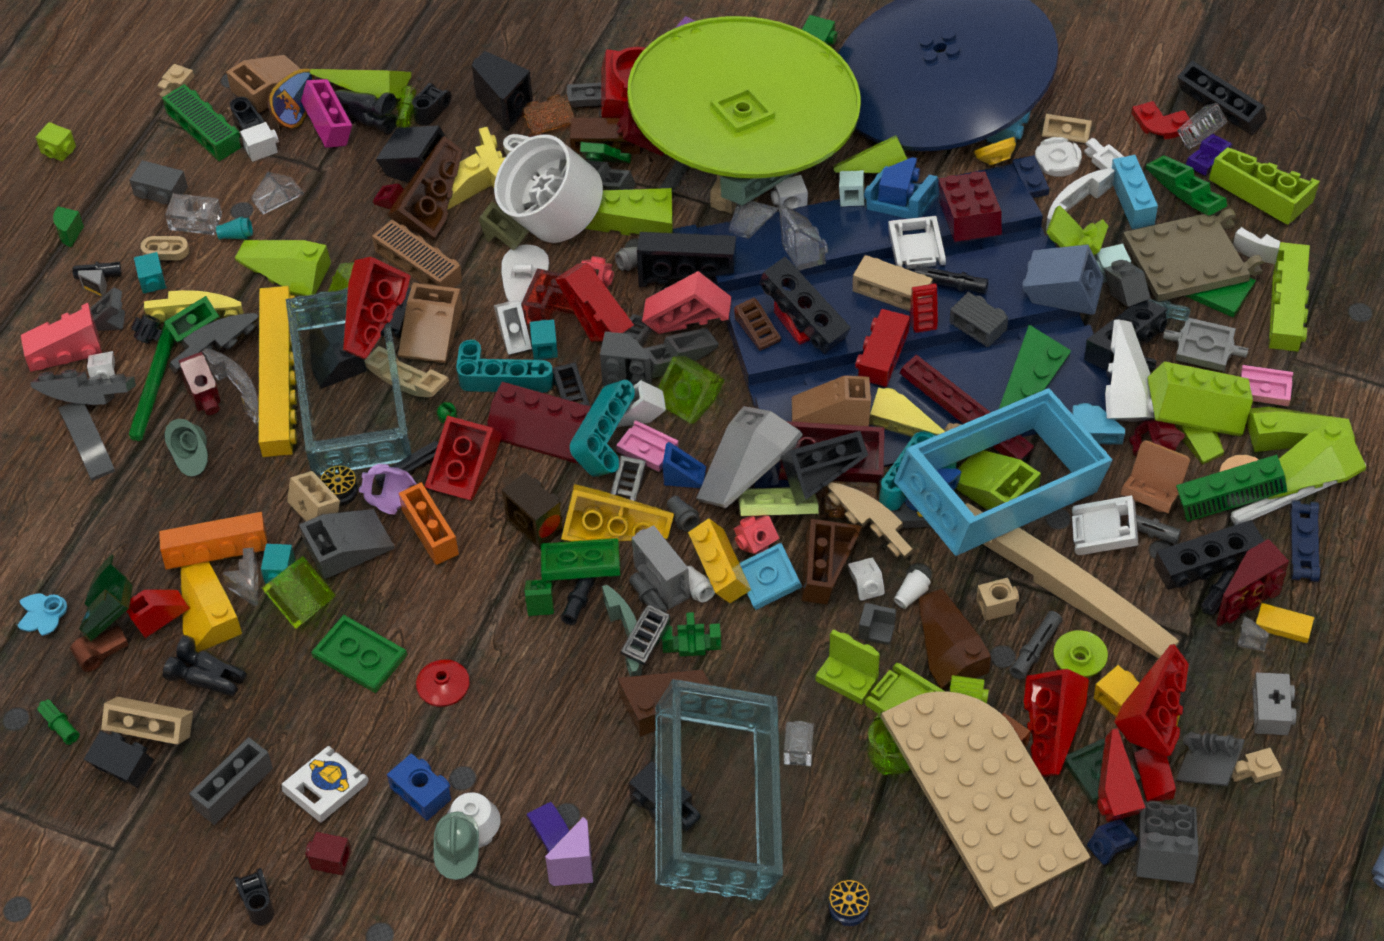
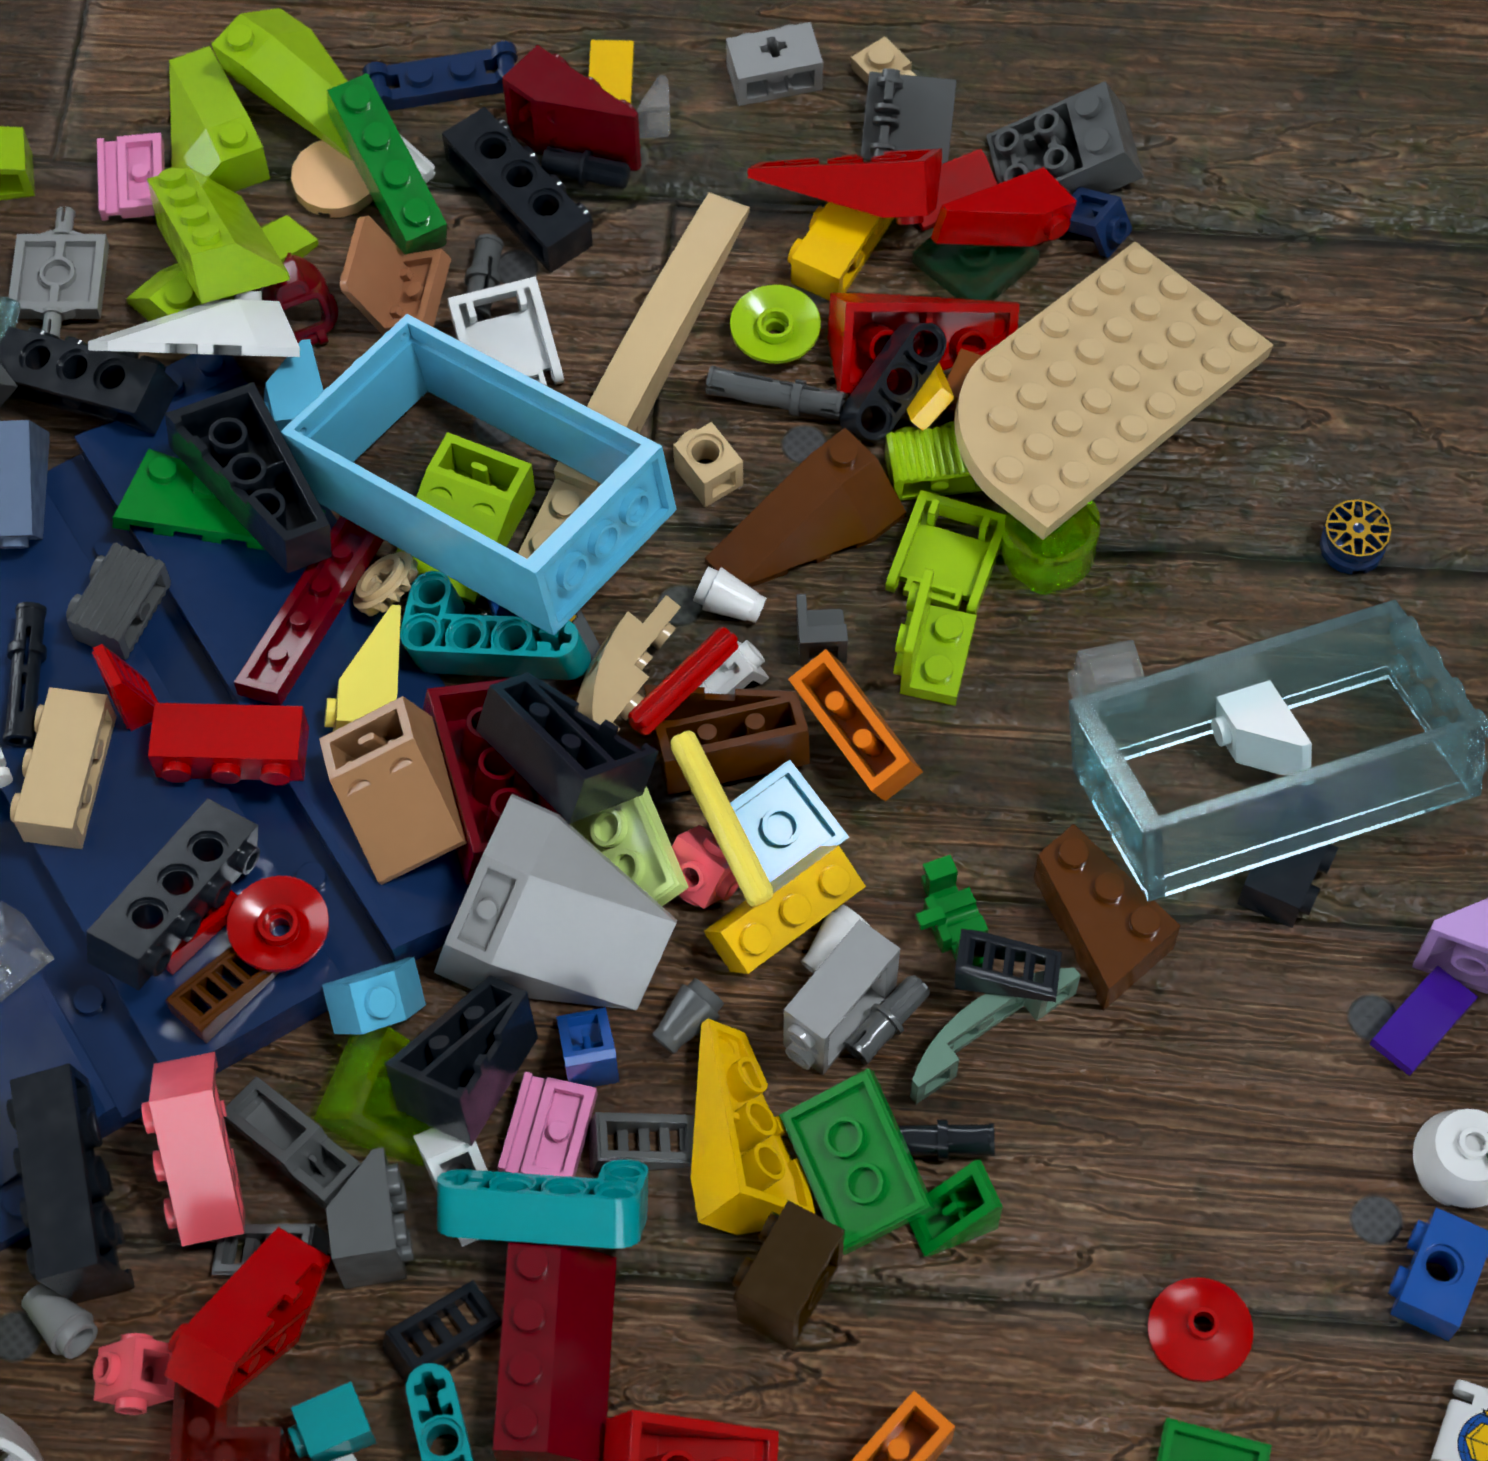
camera: 110 degrees left, 10 degrees up
(685, 409) = (465, 1060): none -> black wedge
(732, 385) = (374, 997): none -> medium azure slope
(737, 801) = (1261, 730): none -> white slope
(767, 529) = (721, 818): none -> light yellow axle
(779, 348) = (275, 903): none -> red dish
(810, 617) = (855, 725): none -> orange brick
(854, 538) = (683, 681): none -> red axle
(1005, 705) = (931, 399): none -> yellow tile
(1018, 692) = (912, 373): none -> black beam
(1051, 370) = (251, 471): none -> black wedge

